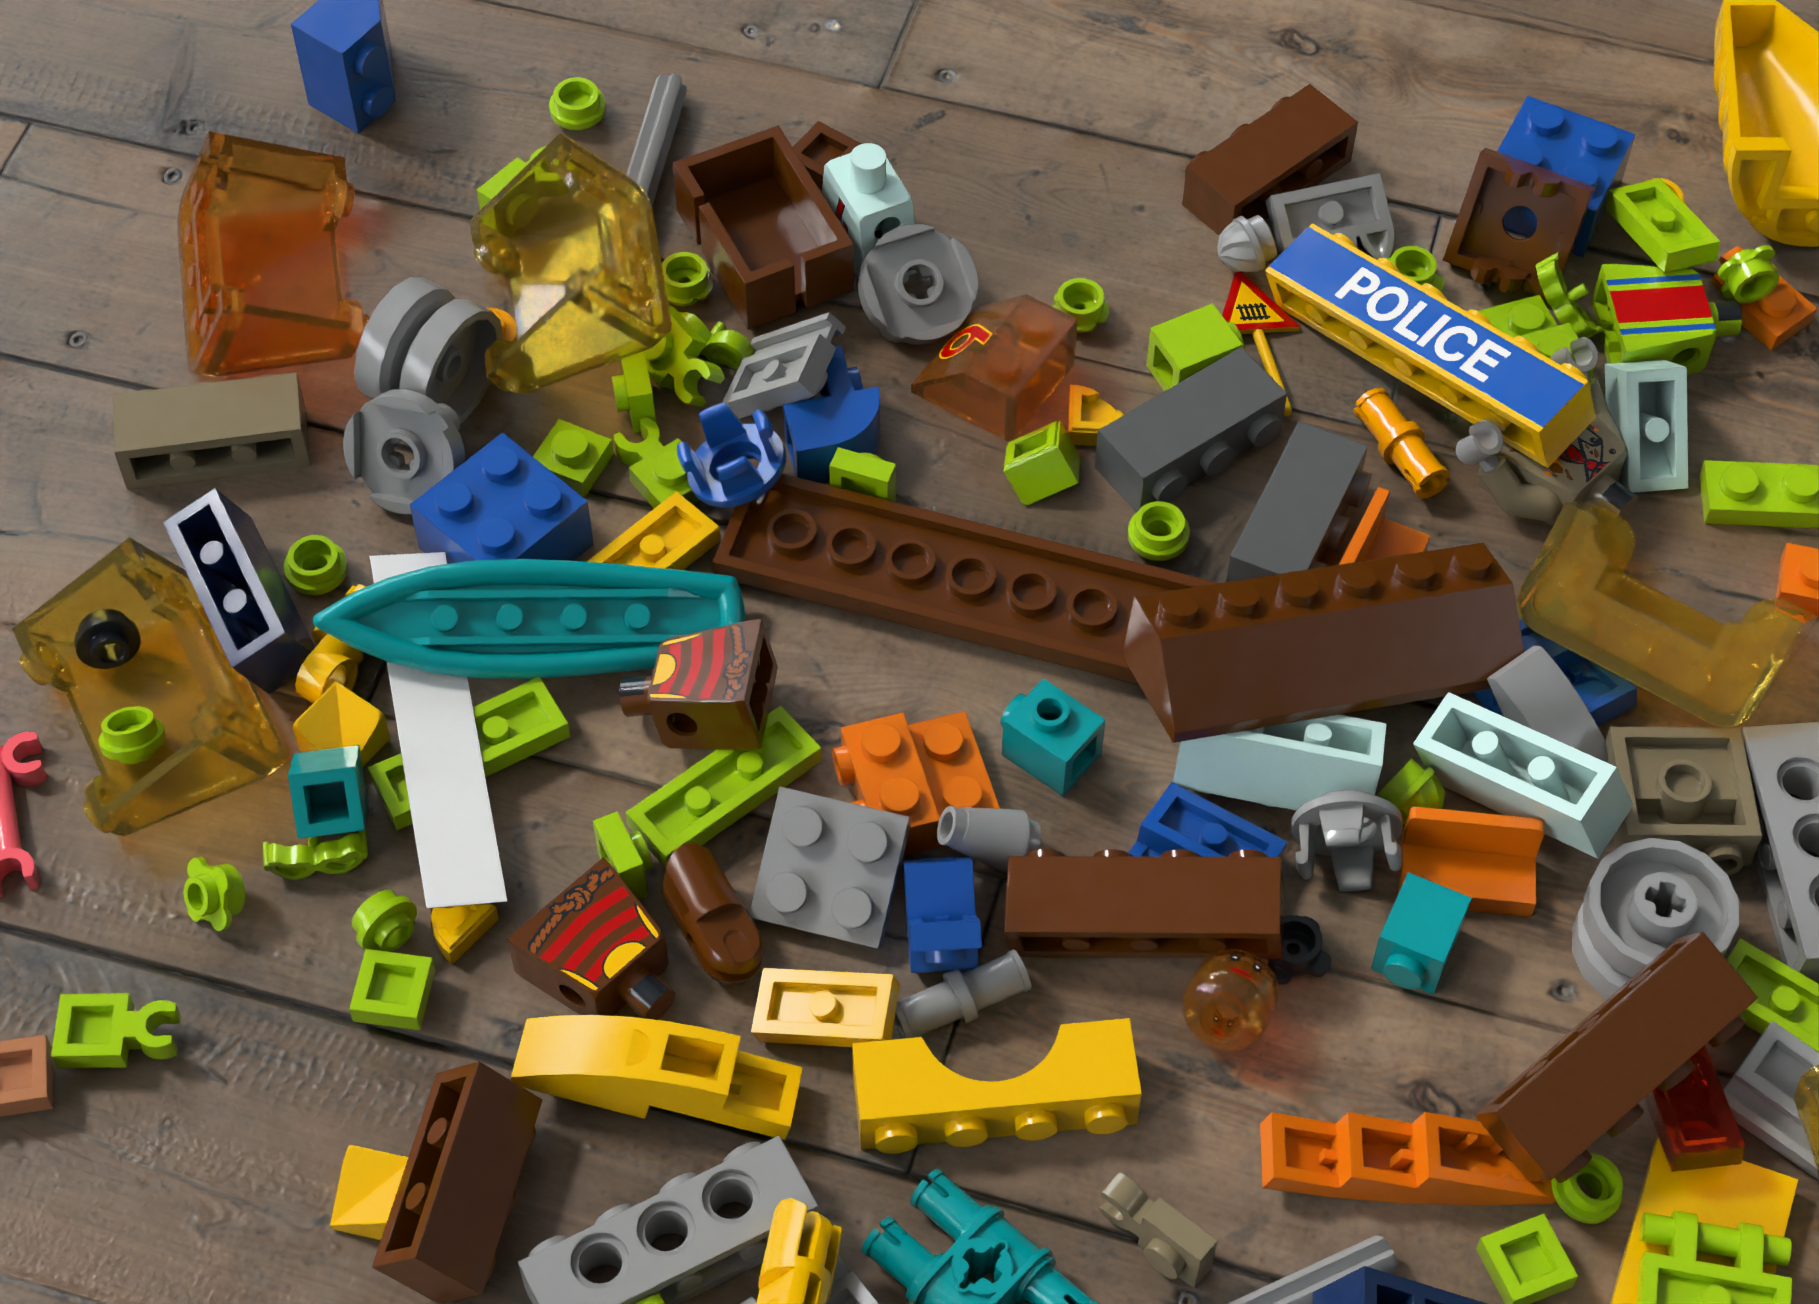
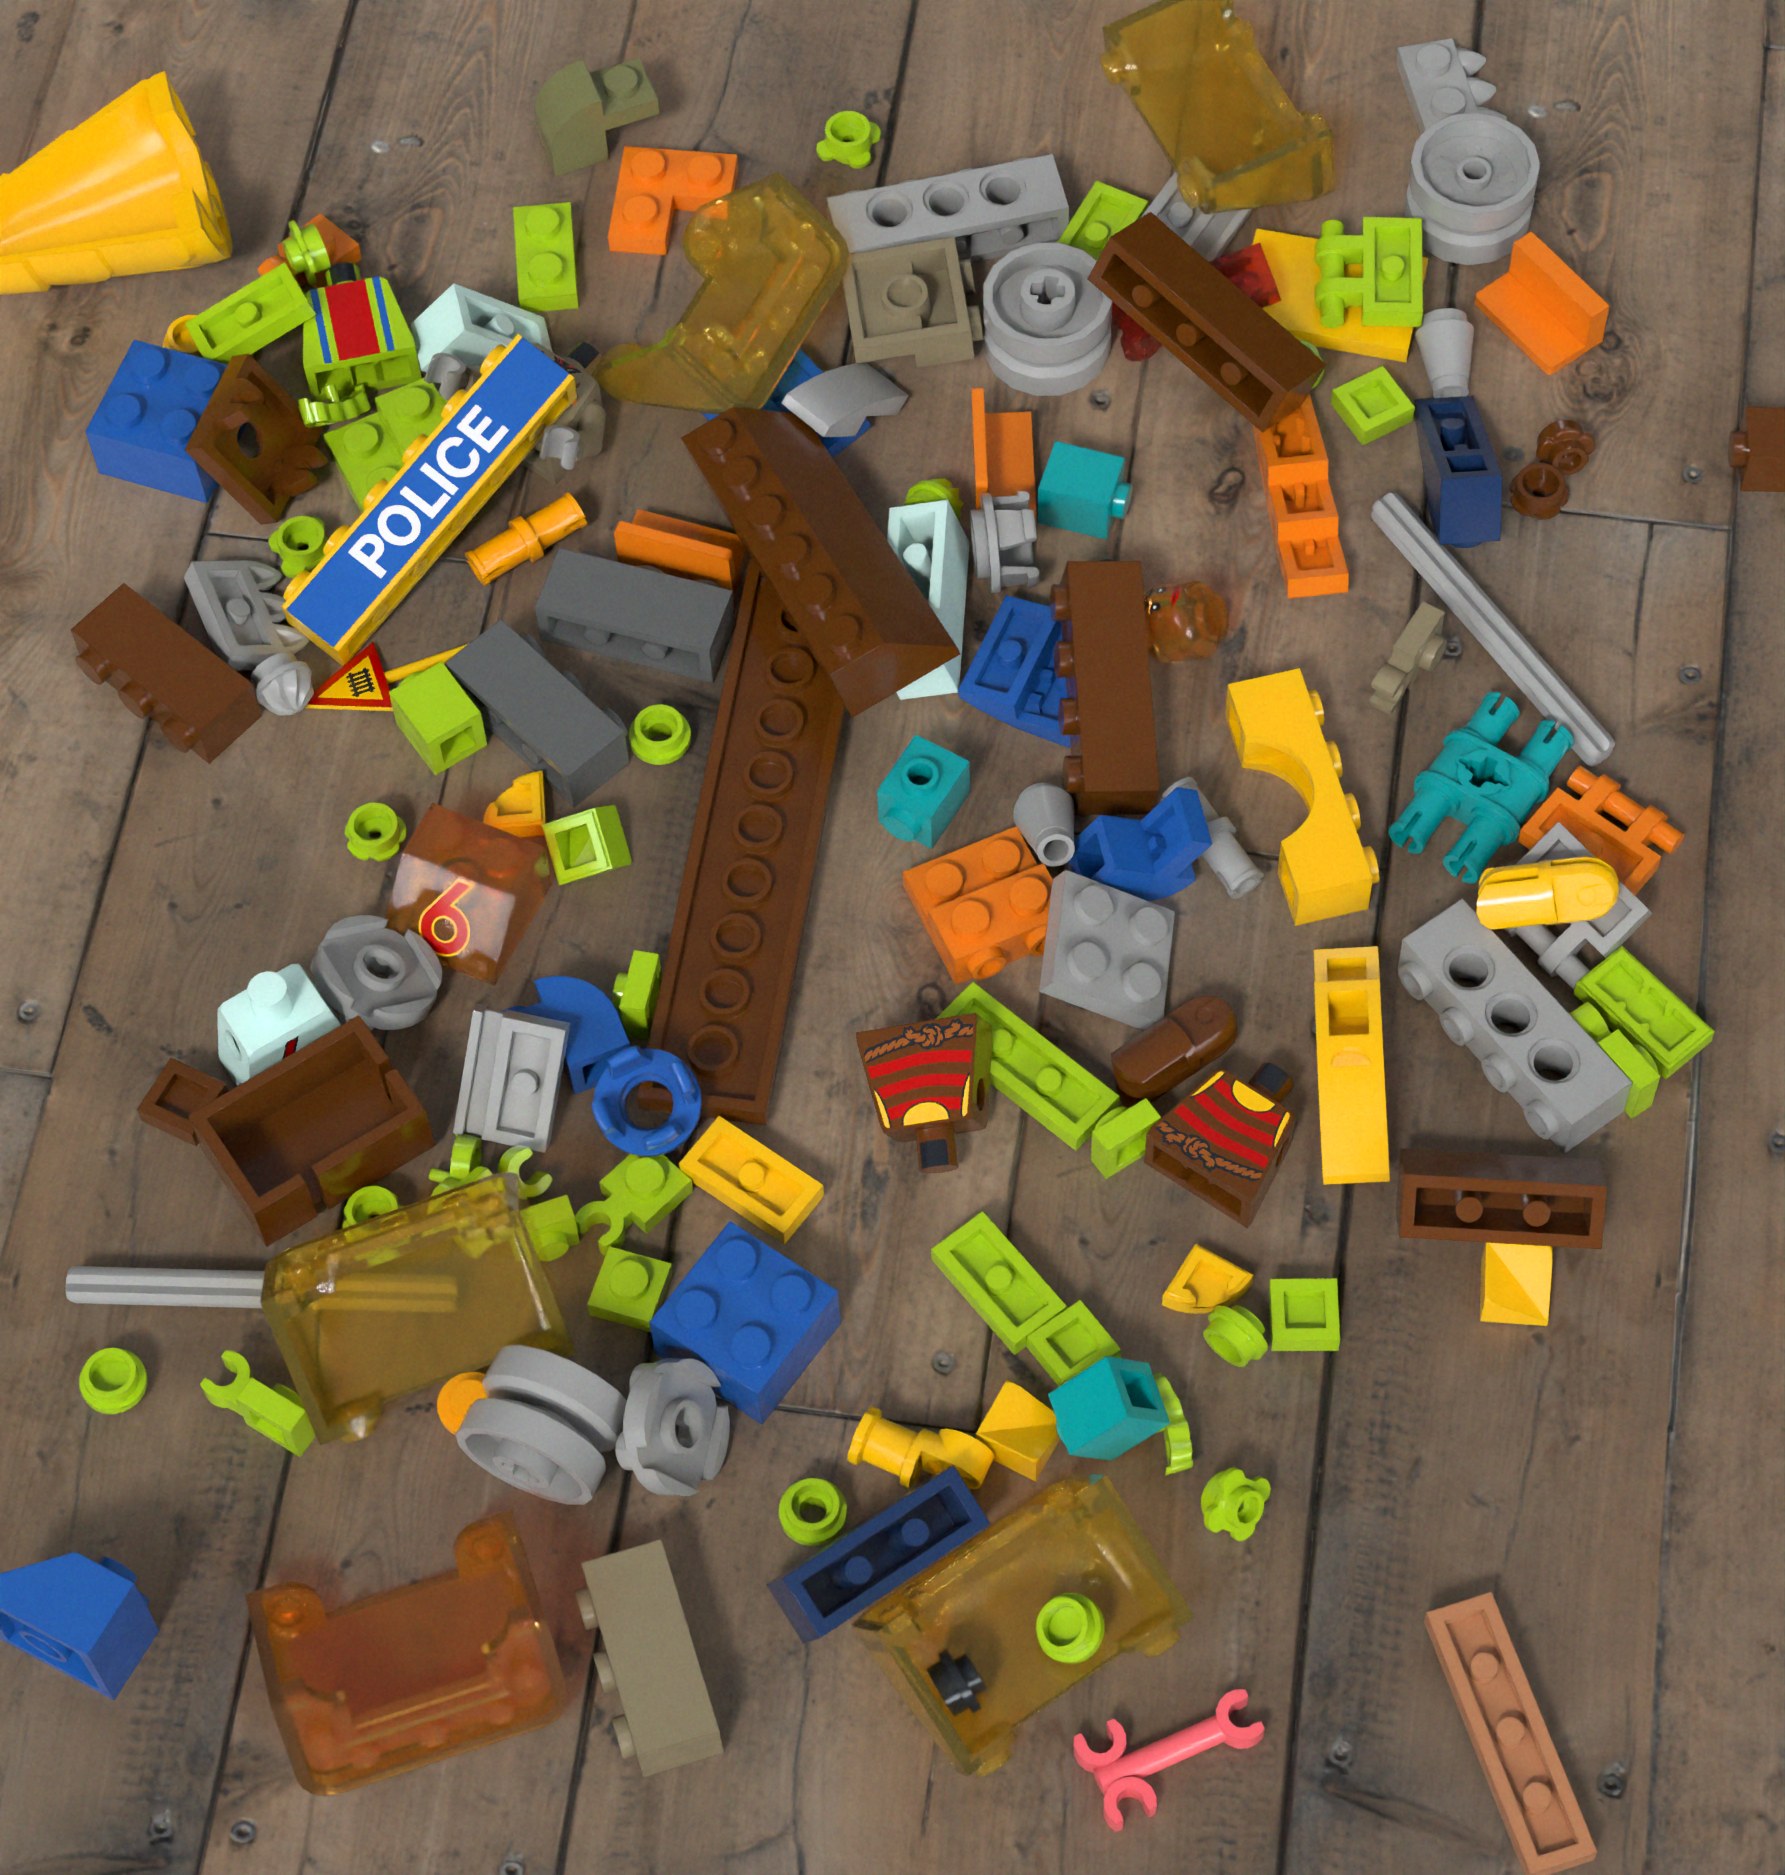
camera: 95 degrees left, 5 degrees up
(103, 1027) = (1401, 1570): lime plate -> none
(443, 773) = (1008, 1327): white sticker -> none
(530, 616) = (874, 1249): teal piece -> none
(824, 1007) = (1253, 936): yellow plate -> none
(1524, 774) = (924, 405): light aqua brick -> none

